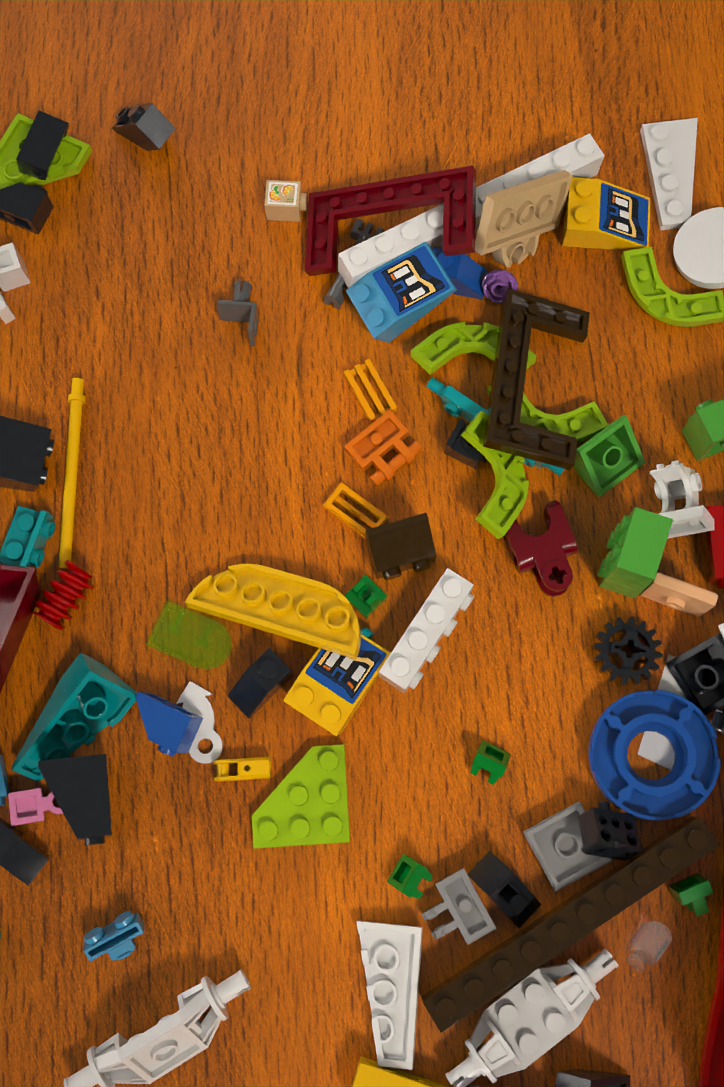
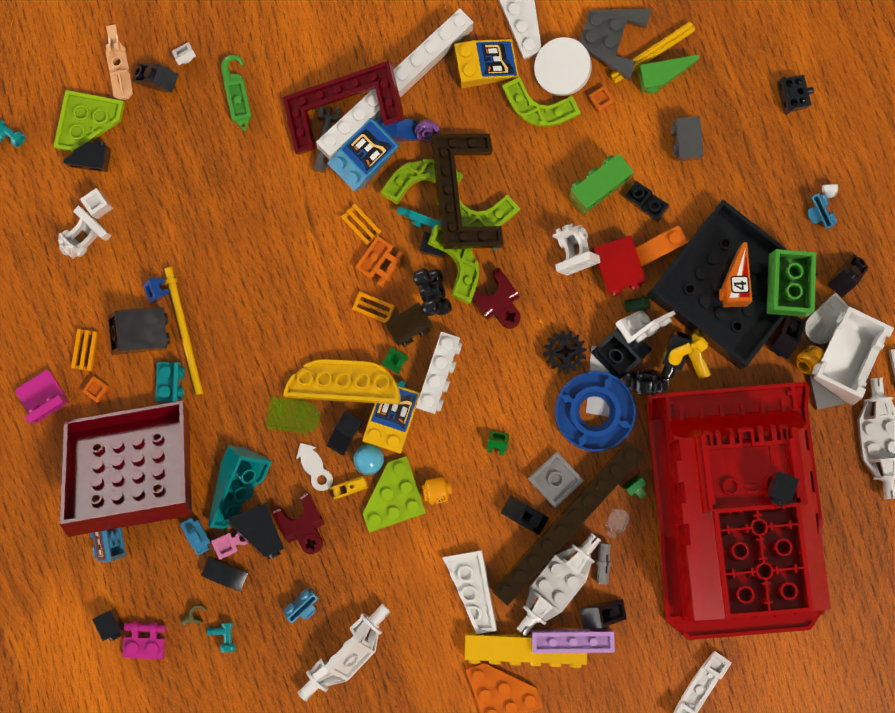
camera: 15 degrees left, 10 degrees up
(41, 145) = (93, 112): black hinge -> none
(46, 403) = (153, 290): none -> blue tile
(64, 595) = (205, 413): red piece -> none
(99, 114) = (119, 74): none -> light nougat piece
(156, 811) = (303, 527): none -> dark red piece
(167, 723) = (295, 473): blue slope -> none
(191, 108) = (183, 54): none -> white plate
(241, 309) = (260, 192): dark grey bracket -> none
(247, 175) = (236, 93): none -> bright green plate
(284, 200) = (267, 106): tan brick -> none
(284, 733) = (368, 459): none -> medium azure hair
(375, 811) = (436, 490): none -> light orange head
(408, 875) = (466, 522): green tile -> none
(449, 507) = (432, 292): none -> black gear
(464, 906) = (503, 531): light grey hinge -> none
(518, 216) = (427, 86): tan plate -> none
(609, 457) = (525, 230): bright green slope -> none
(609, 833) = (578, 465): black piece -> none
(612, 1005) = (603, 563): none -> light grey pin
(634, 552) = (554, 292): bright green brick -> none
(680, 595) = (587, 310): light nougat plate -> none

